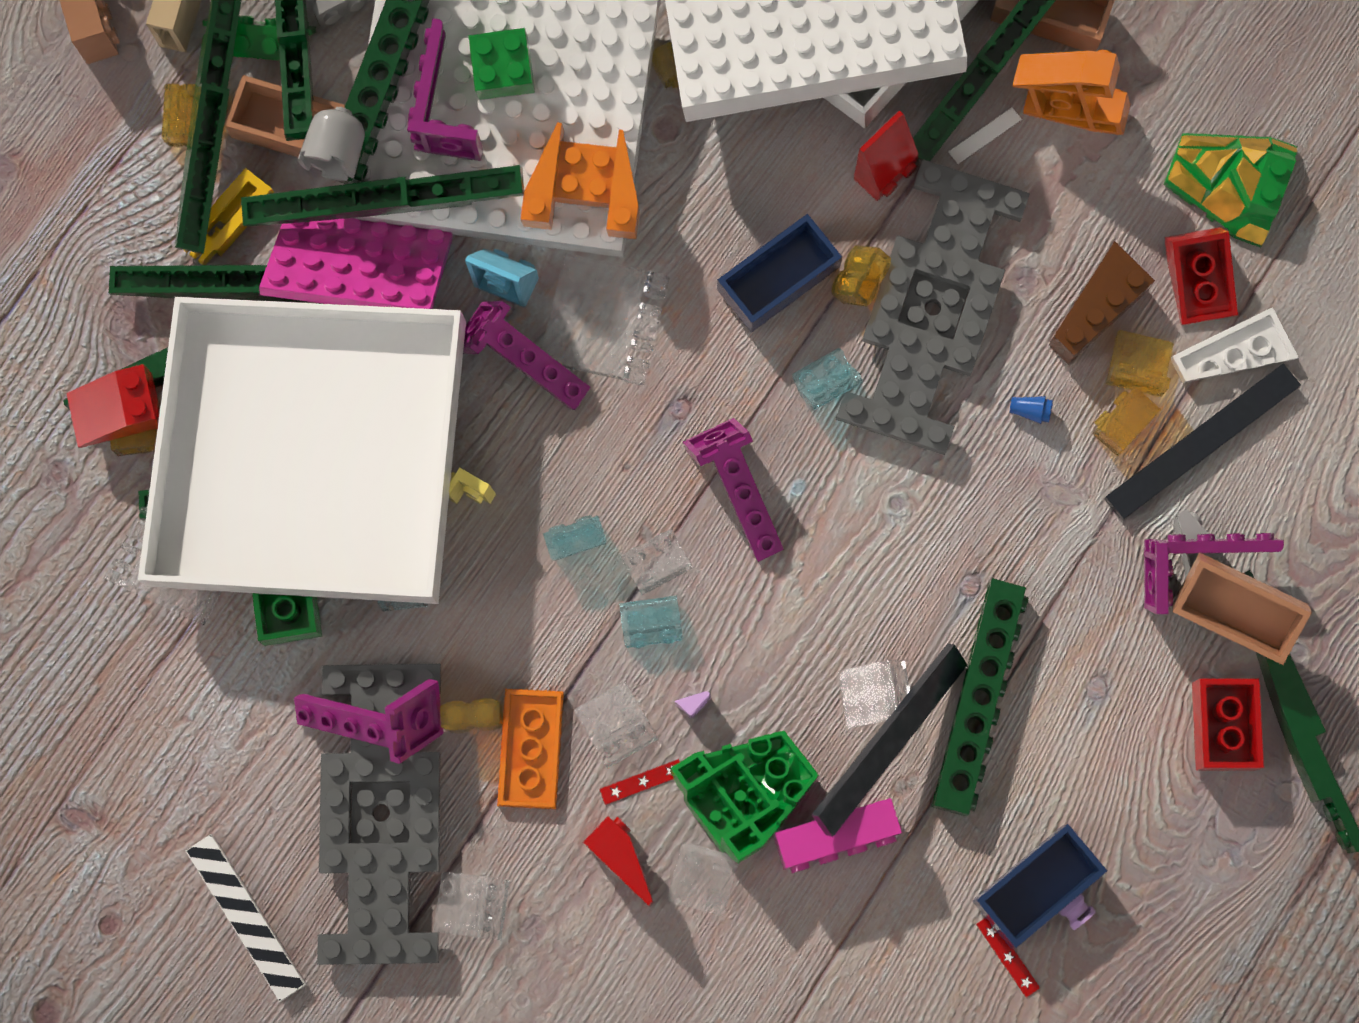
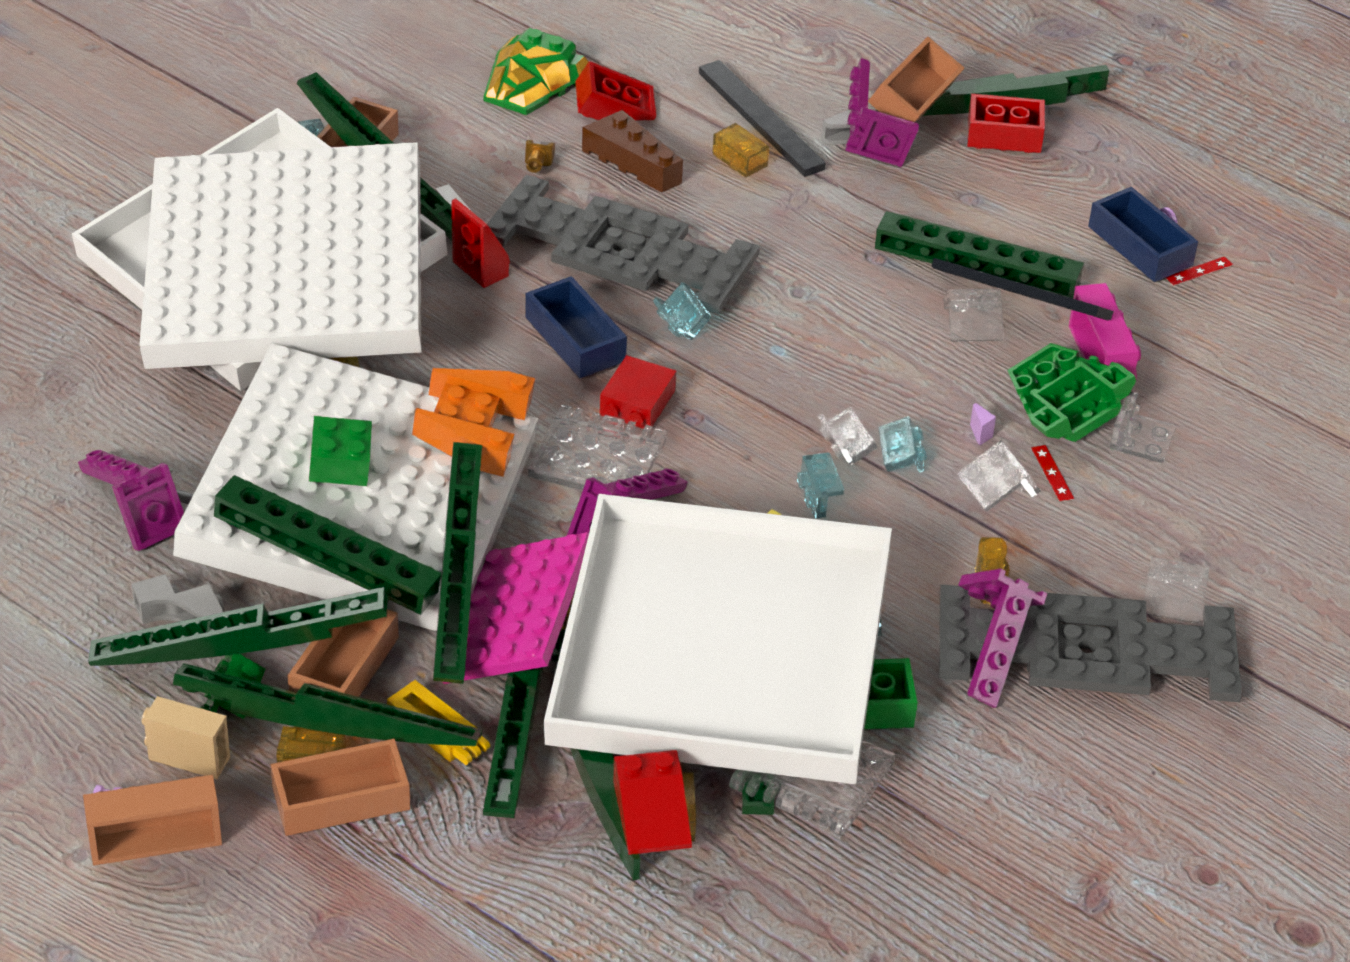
camera: 90 degrees left, 35 degrees down
(133, 144) = (340, 787): none -> nougat piece
(246, 917) = (1194, 760): tile -> none
(333, 144) = (408, 559): light grey cylinder -> none
(435, 135) = (396, 513): magenta bracket -> none
(502, 276) = (551, 504): medium azure slope -> none
(530, 749) = (1027, 540): orange tile -> none
(616, 850) = (1130, 471): red slope -> none
(693, 347) = (638, 391): none -> red brick
(722, 448) = (748, 360): magenta bracket -> none
(861, 275) = (591, 278): clear yellow brick -> none
(1032, 408) = (722, 198): blue cone -> none
(1074, 89) = (441, 123): orange wedge -> none
(1077, 203) = (538, 155): none -> pearl gold piece
(1140, 363) = (693, 140): clear yellow bracket -> none
(1242, 347) = (683, 88): white wing -> none

